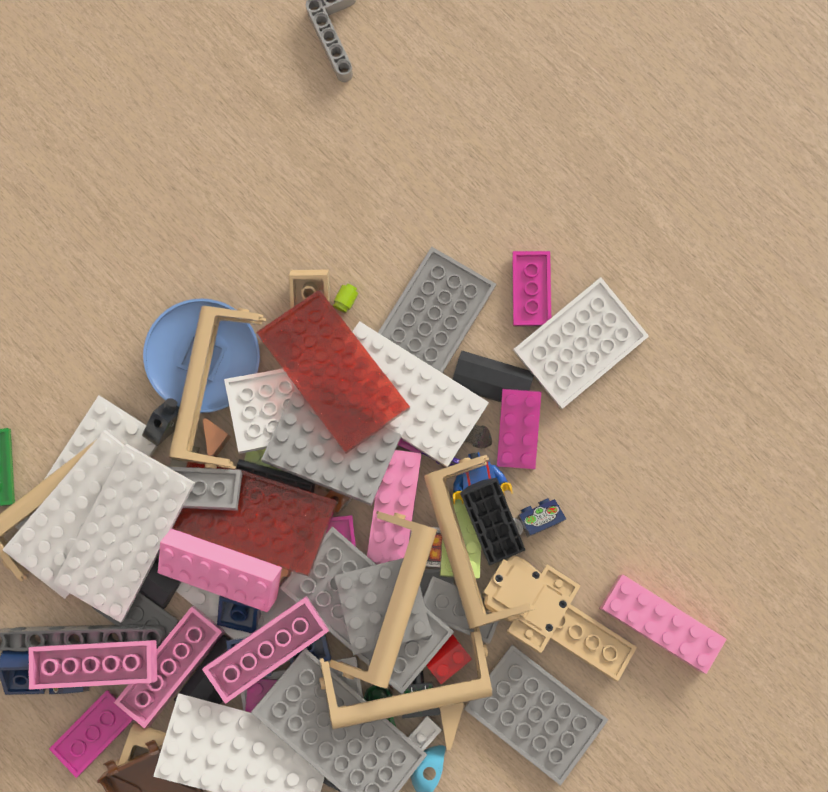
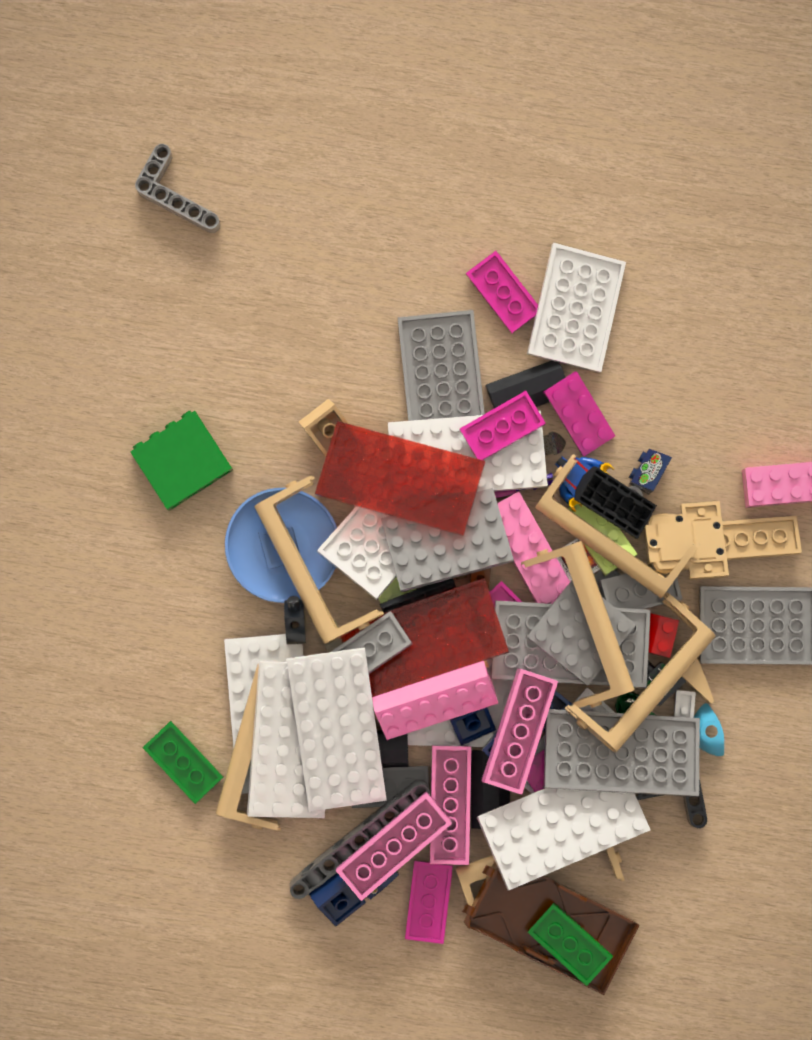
camera: 45 degrees left, 5 degrees up
(177, 233) = (181, 460): none -> green panel
(215, 438) = (344, 602): nougat slope -> none
(345, 298) = (360, 411): lime brick -> none
(447, 390) = (502, 426): none -> dark pink plate

